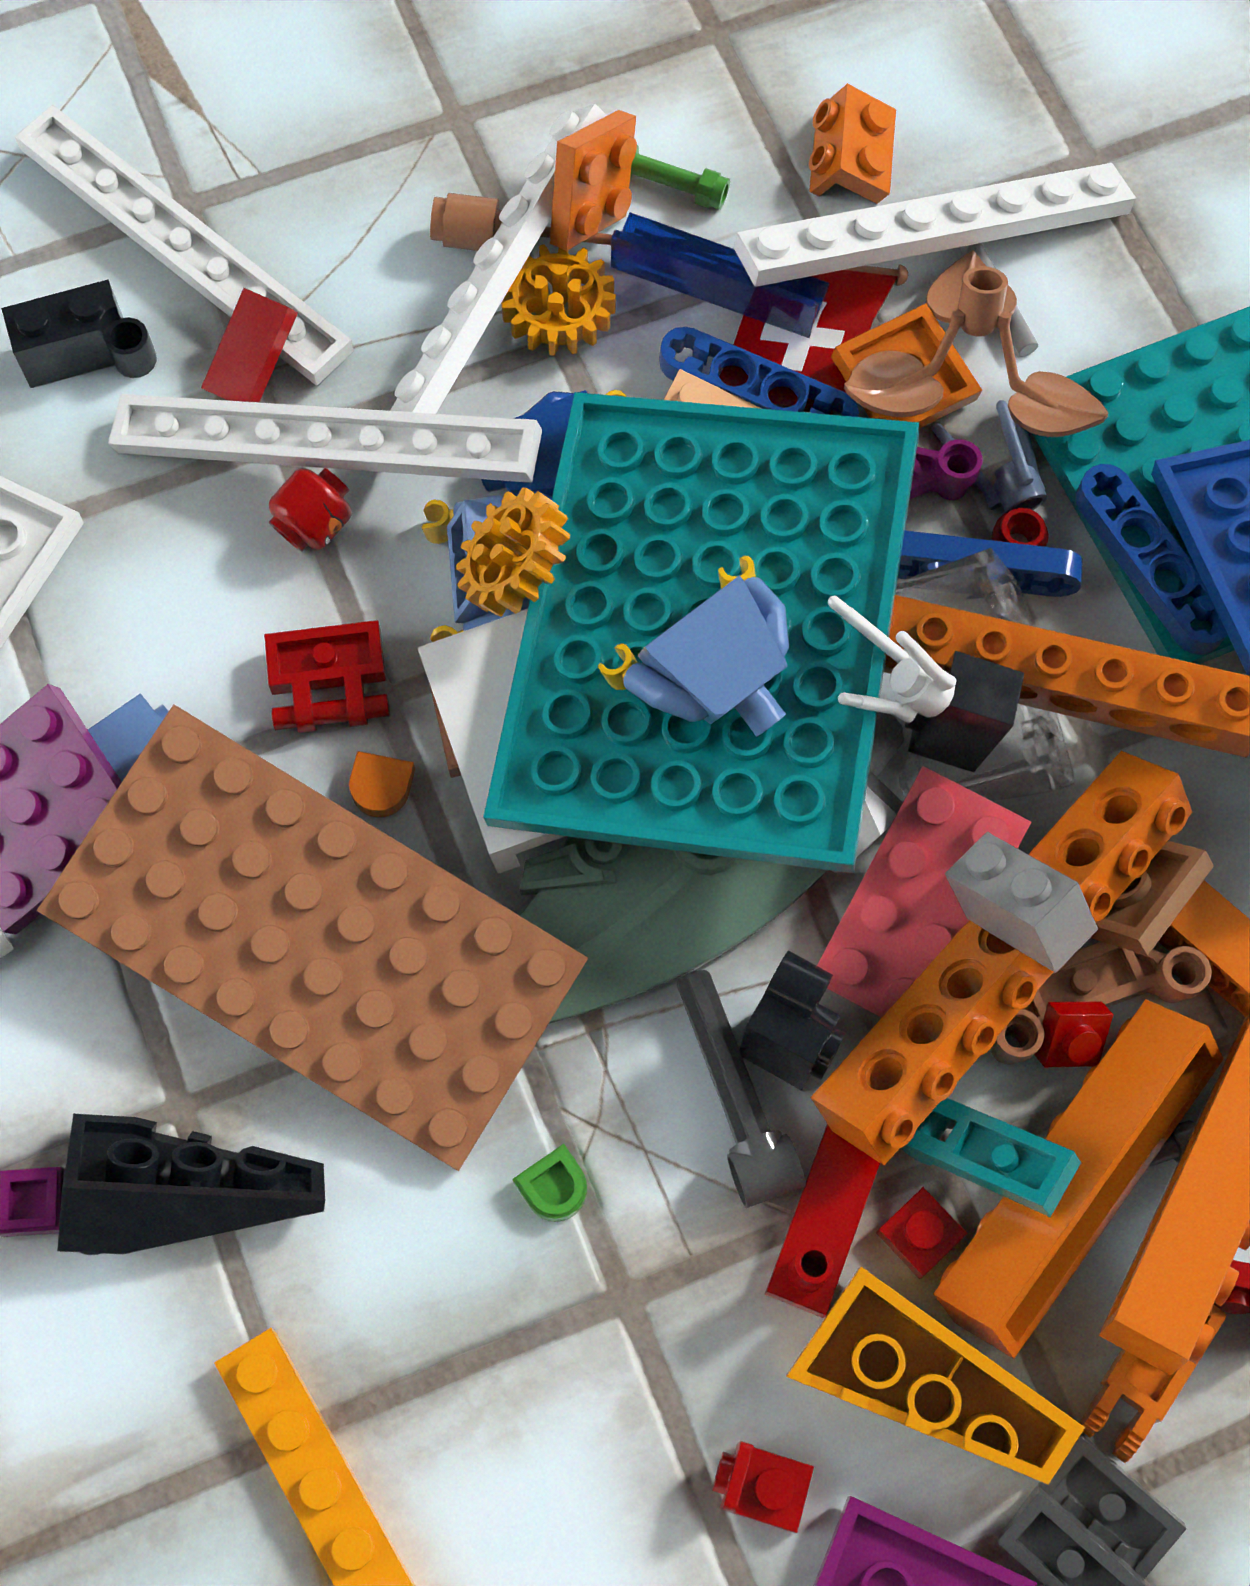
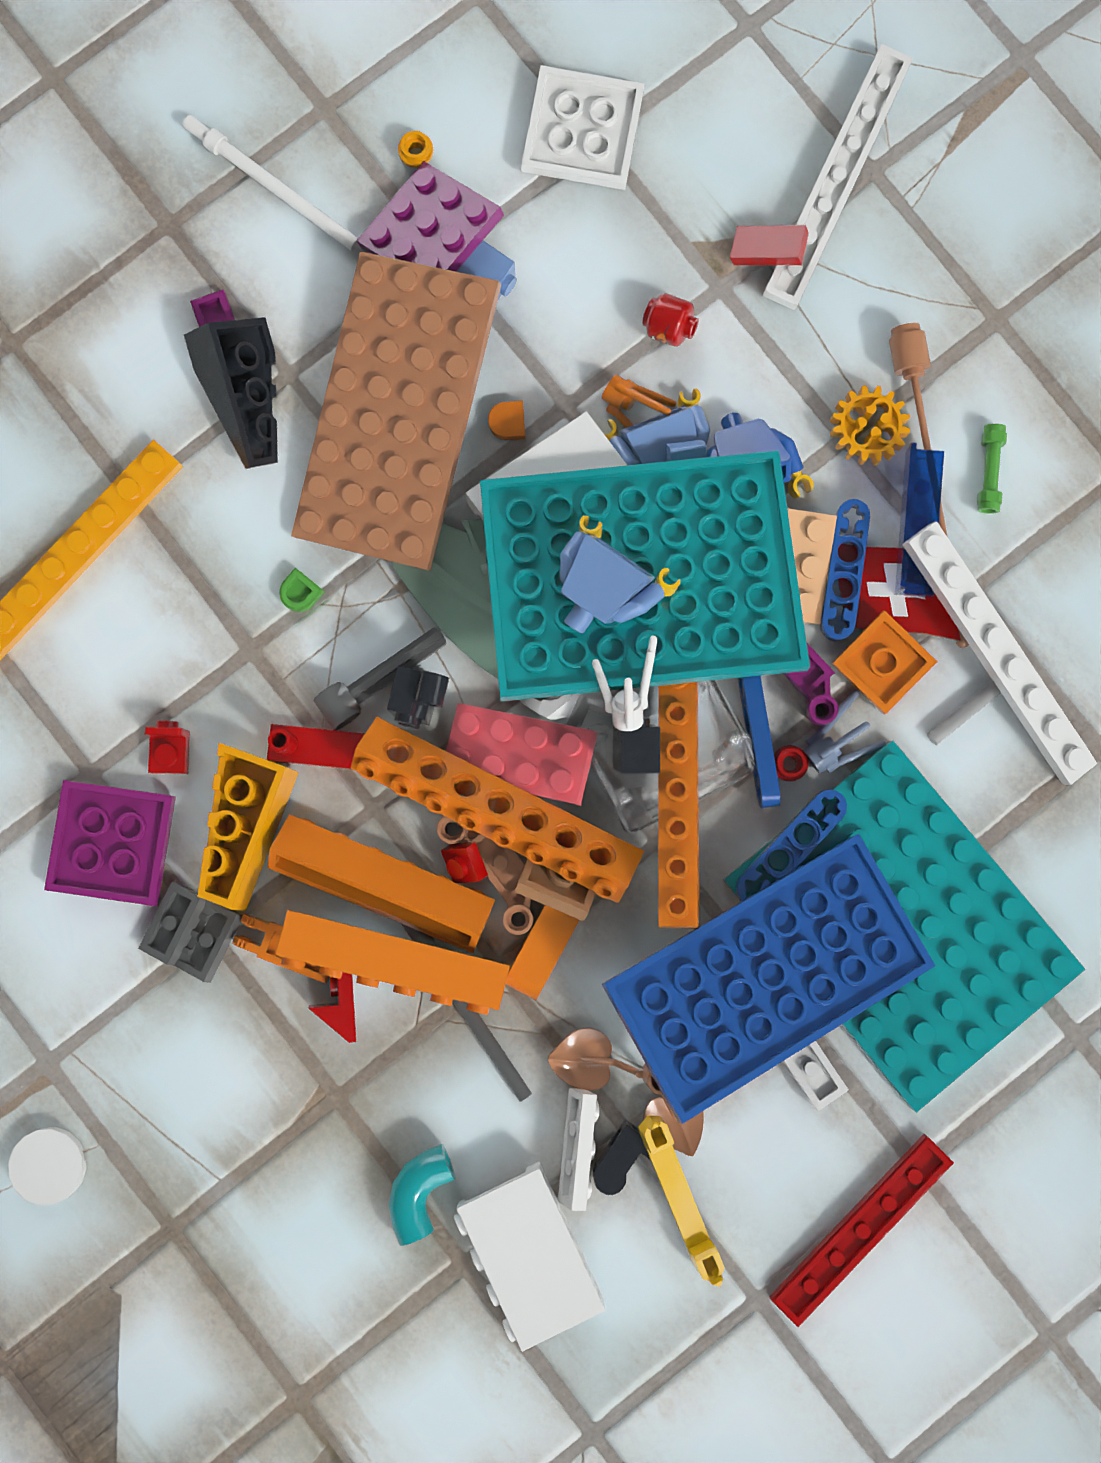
camera: 75 degrees right, 15 degrees up
(77, 335) = (747, 136): black hinge -> none
(322, 660) = (576, 363): red plate -> none
(327, 437) = (714, 312): white plate -> none
(399, 604) = (623, 395): none -> orange plant
(496, 268) = (872, 378): white plate -> none
(512, 552) = (671, 444): light orange gear -> none
(592, 179) = (955, 418): orange plate -> none
(853, 144) = (1054, 586): orange bracket -> none
(921, 1233) = (328, 803): red plate -> none
(977, 301) = (949, 686): nougat plant -> none
(995, 1155) = (374, 830): teal plate -> none
(1022, 901) = (513, 804): light grey brick -> none

